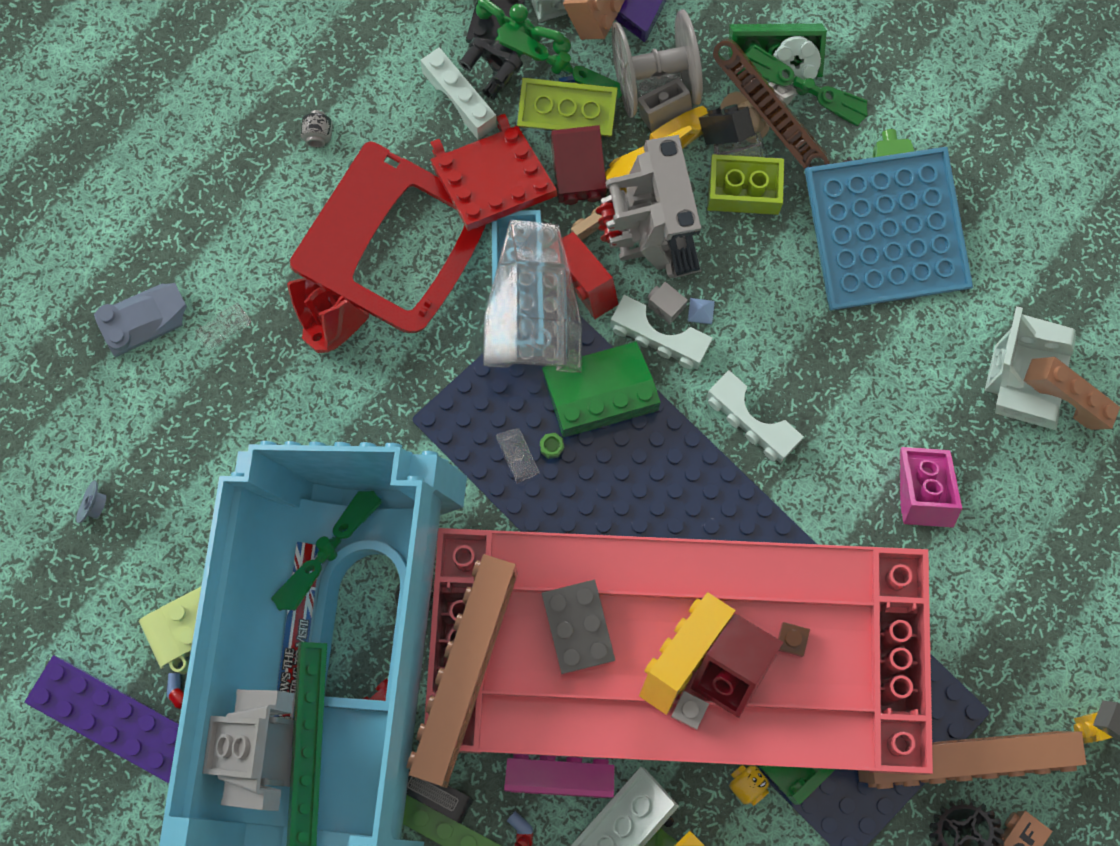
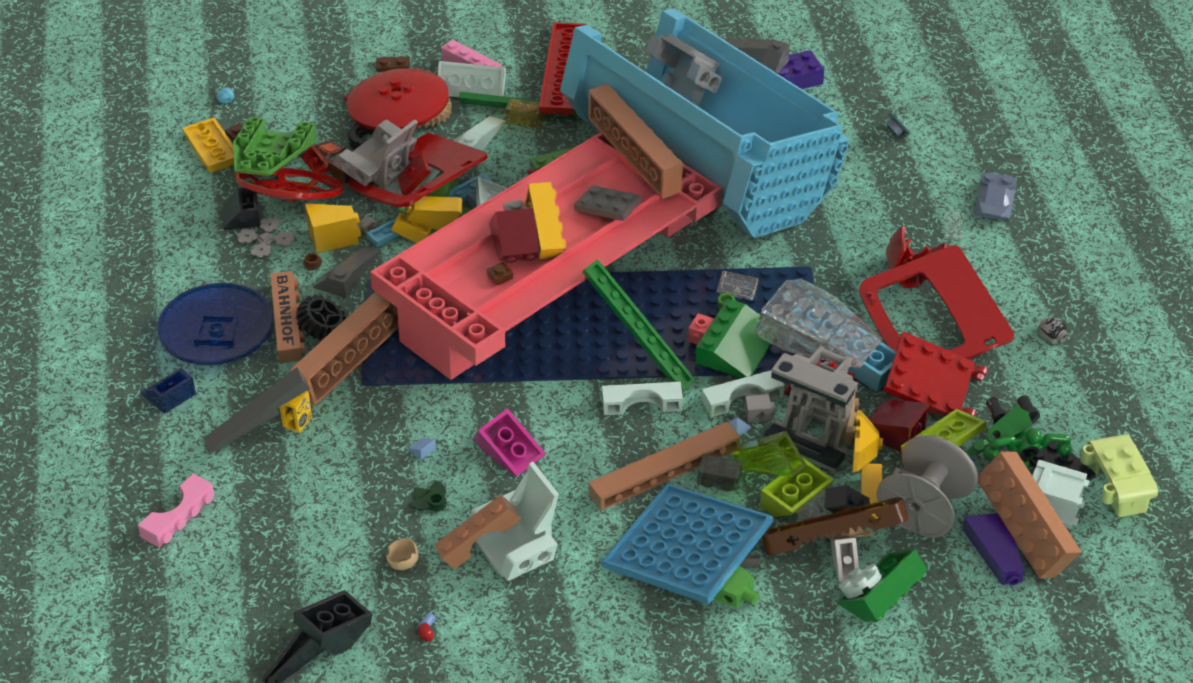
camera: 135 degrees right, 30 degrees down
(97, 741) = (768, 52): none -> dark grey wedge
(470, 105) = (1008, 400): light aqua arch -> none
(618, 431) = (698, 328): none -> coral brick
(701, 468) = (637, 324): none -> green plate
(739, 226) = (771, 455): none -> clear neon green slope
(780, 270) = (720, 473): none -> clear smoke brick
(818, 325) = (662, 466): none -> nougat brick
(843, 104) = (867, 554): green piece -> none
(1006, 568) = (423, 447): none -> light blue slope
(1053, 505) = (426, 498): none -> dark green plate

